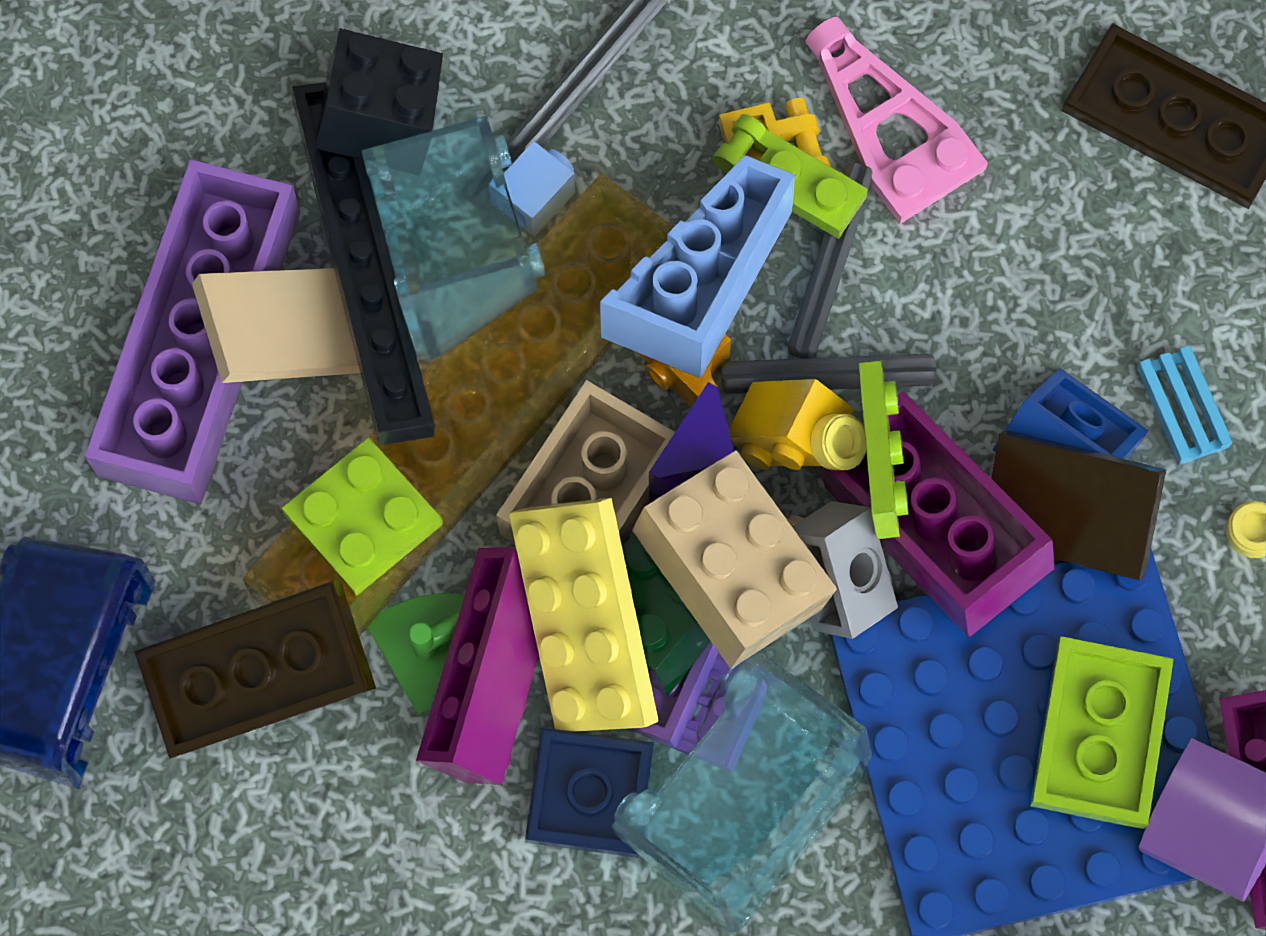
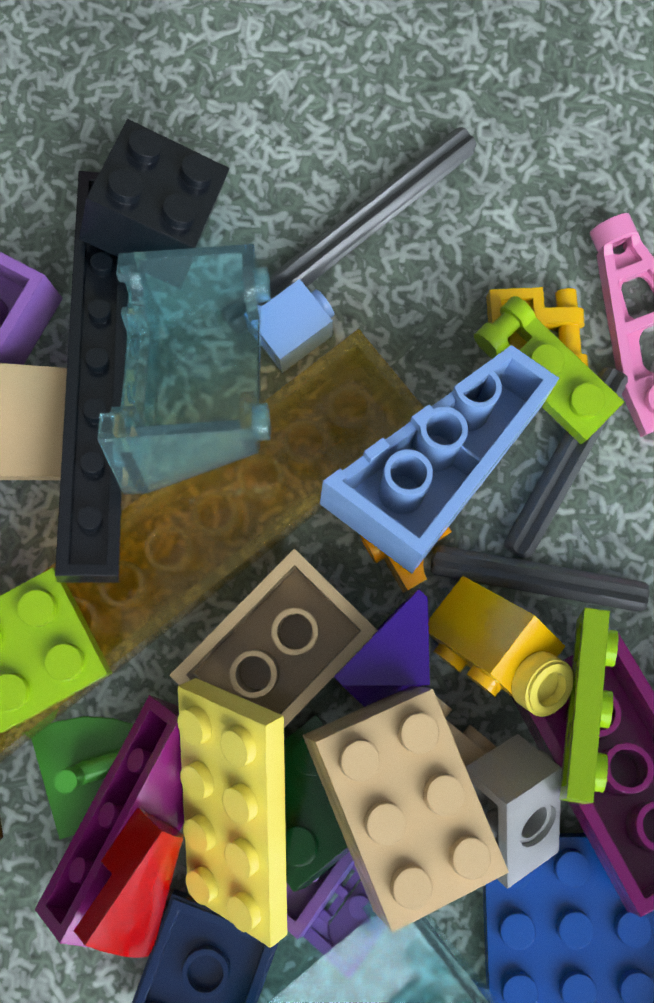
camera: 10 degrees right, 10 degrees up
(509, 706) = (133, 900): none -> red slope

